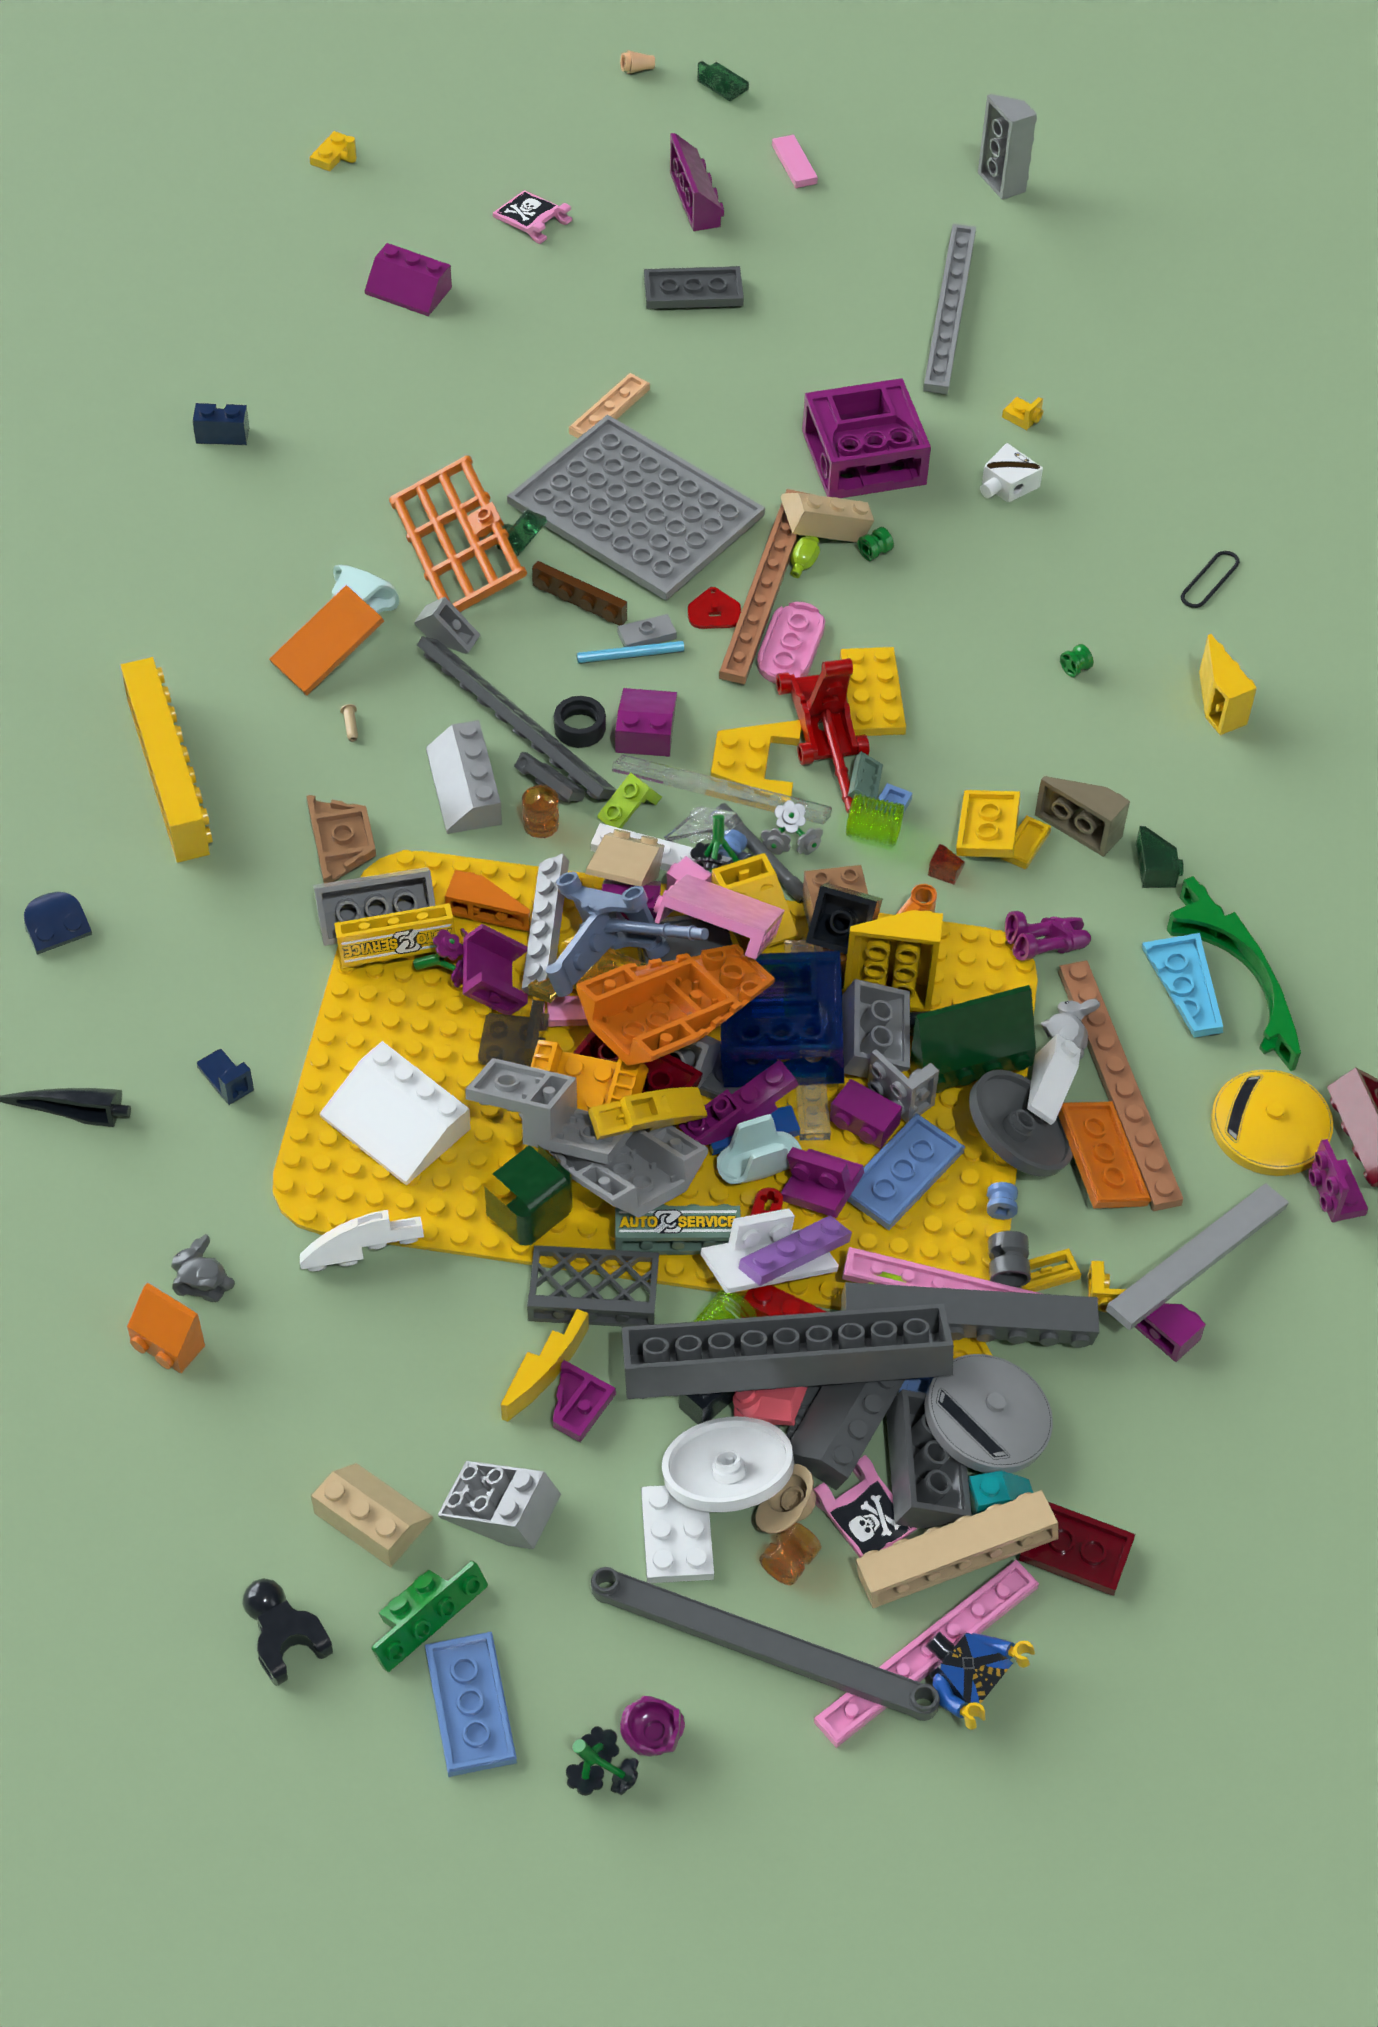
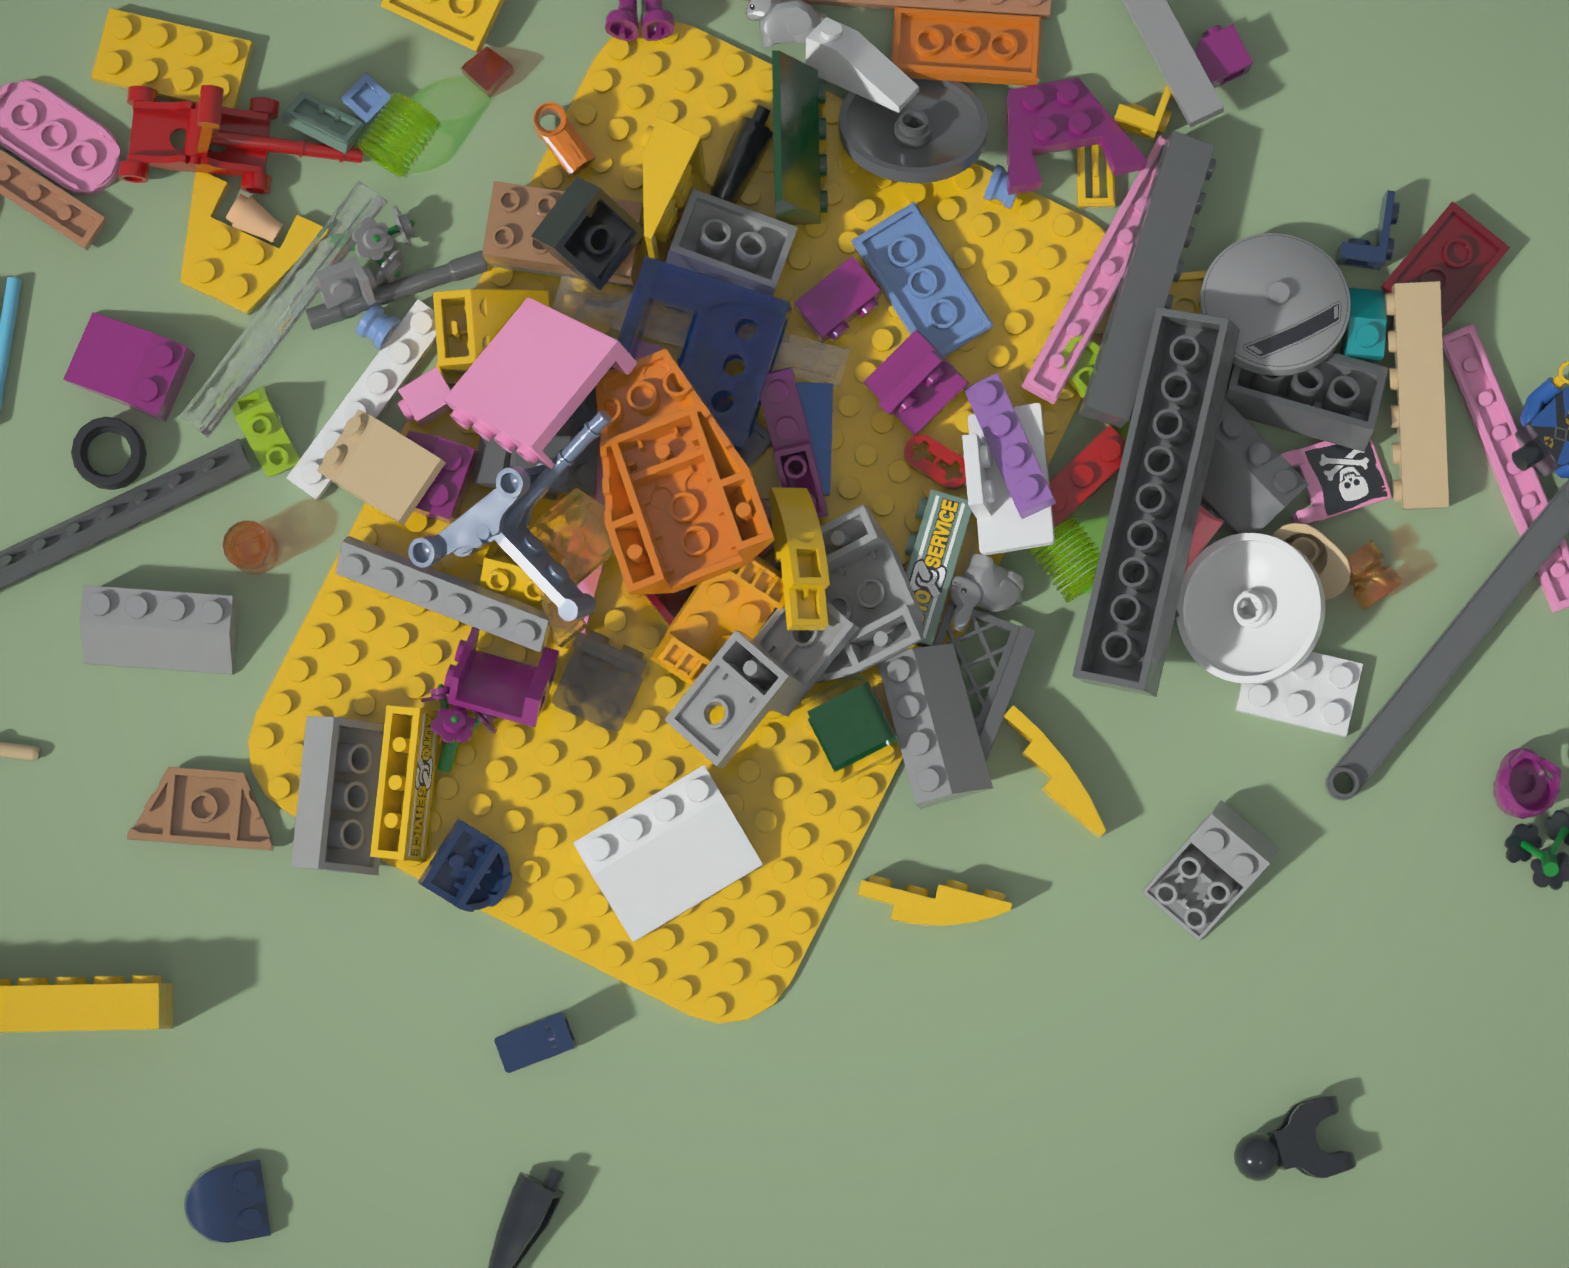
camera: 65 degrees left, 30 degrees up
(165, 1329) = (889, 1193): orange slope -> none
(199, 1274) = (812, 1137): dark grey animal -> none
(344, 993) = (468, 869): none -> dark blue slope
(346, 1241) = (825, 931): white slope -> none
(369, 1512) = (1179, 1012): tan slope -> none
(410, 1310) = (949, 907): none -> yellow slope
(424, 1610) = (1312, 988): green bracket -> none
(470, 1704) = (1431, 965): medium blue tile -> none
(481, 900) = (374, 663): orange slope -> none
(548, 776) = (192, 519): dark grey hinge -> none
(551, 1255) = (934, 724): none -> light grey slope
(579, 1401) = (1109, 746): magenta wing -> none
(677, 1270) = (986, 587): none -> light grey animal
(699, 825) = (337, 349): clear wing -> none
(708, 856) = (399, 360): plant -> none
(753, 814) = (345, 282): none -> light grey bracket
(755, 1151) = (860, 414): light aqua piece -> none
(779, 758) = (253, 218): none -> light nougat cone
(912, 1093) = (837, 250): light grey bracket -> none
(1009, 1258) = (1085, 208): dark grey wheel -> none
(1069, 1221) = (1058, 119): none -> magenta wing
(1074, 1492) = (1358, 251): none -> dark blue bracket

